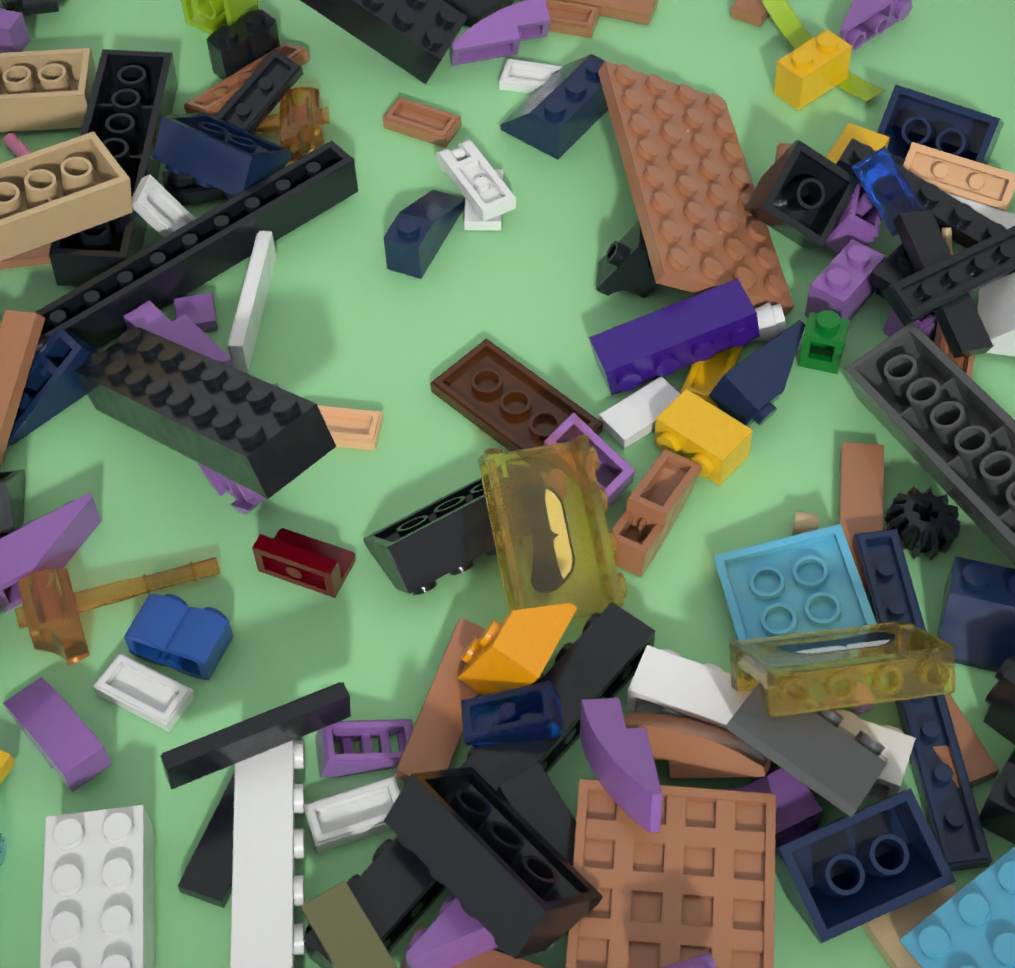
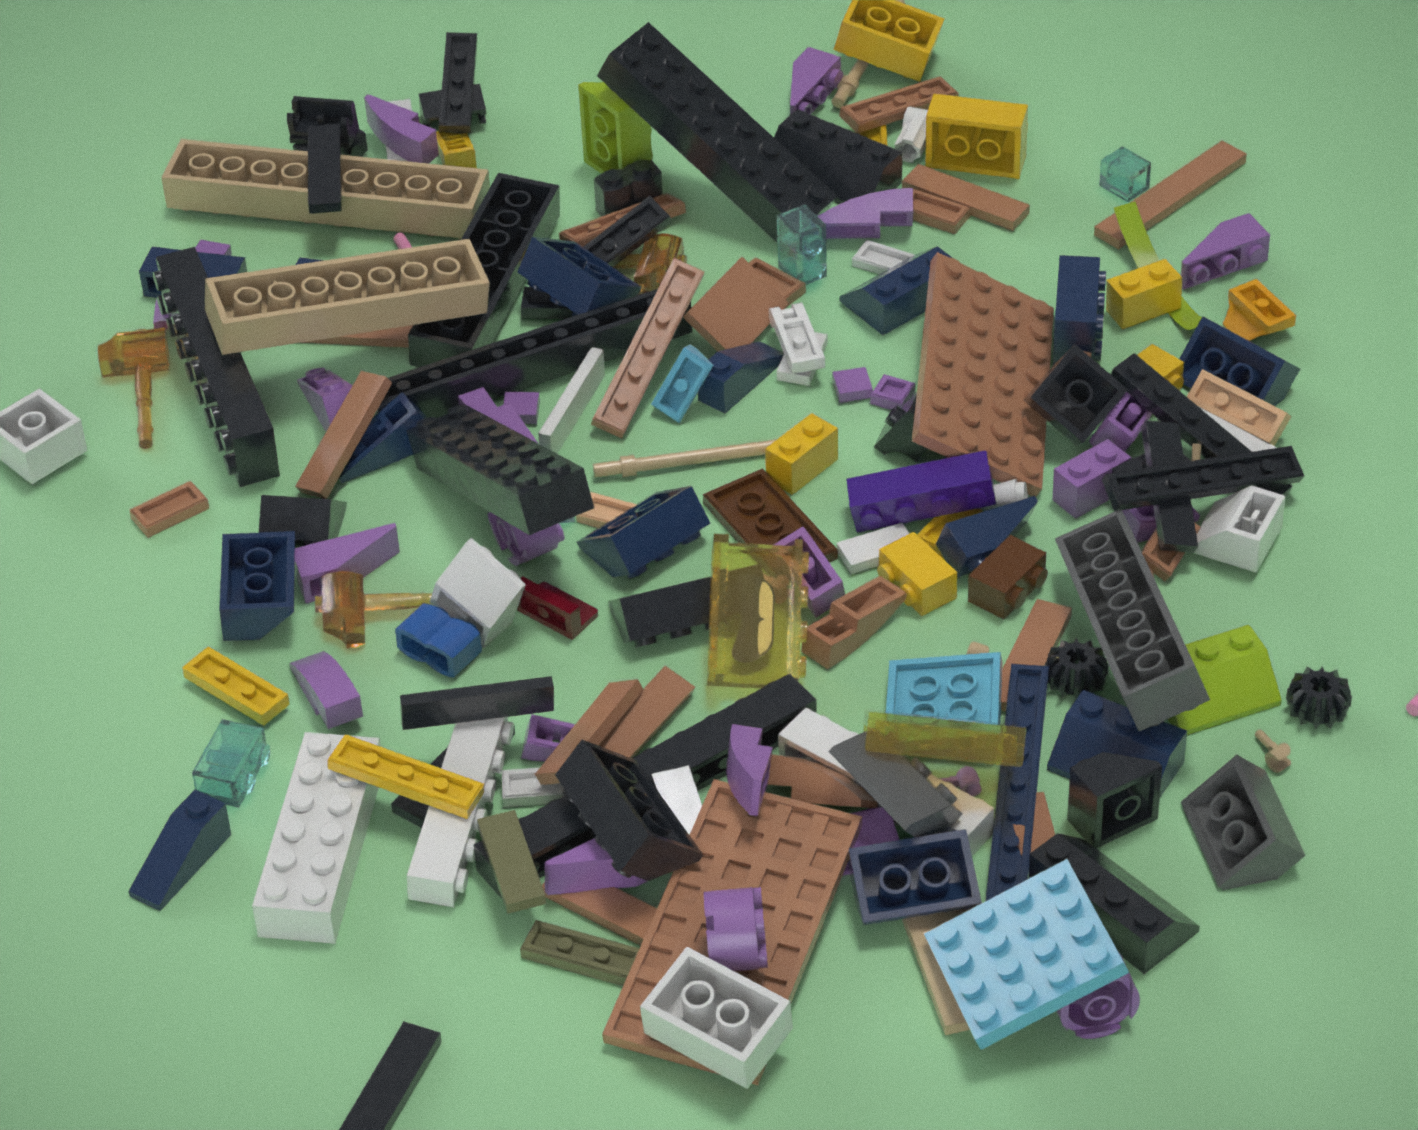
camera: 15 degrees right, 10 degrees down
(48, 32) = (456, 150): none -> yellow slope
(144, 692) = (399, 673): white tile -> none
(159, 207) = (511, 312): white tile -> none
(192, 861) = (406, 776): none -> yellow tile
(214, 567) = (479, 591): none -> white slope
(321, 222) = (647, 348): none -> nougat tile
(338, 361) = (630, 465): none -> tan bar
(372, 255) = (682, 383): none -> medium azure slope
(398, 733) = (593, 725): none -> nougat tile
(399, 158) = (735, 308): none -> nougat tile
(404, 427) = (646, 532): none -> dark blue slope
(448, 75) = (802, 244): none -> clear light blue brick
(513, 715) = (681, 732): clear blue slope -> none
(515, 649) = (697, 688): light orange slope -> none
(526, 313) = (802, 453): none -> yellow brick
(548, 221) = (852, 384): none -> medium lavender tile
(593, 224) = (892, 392): none -> medium lavender tile
(760, 100) = (1079, 306): none -> dark blue brick
(801, 422) = (1007, 577): none -> reddish brown brick
(824, 331) = (1052, 509): green brick -> none
(886, 187) = (1147, 396): clear blue slope -> none
(930, 68) = (1256, 311): none -> light orange slope

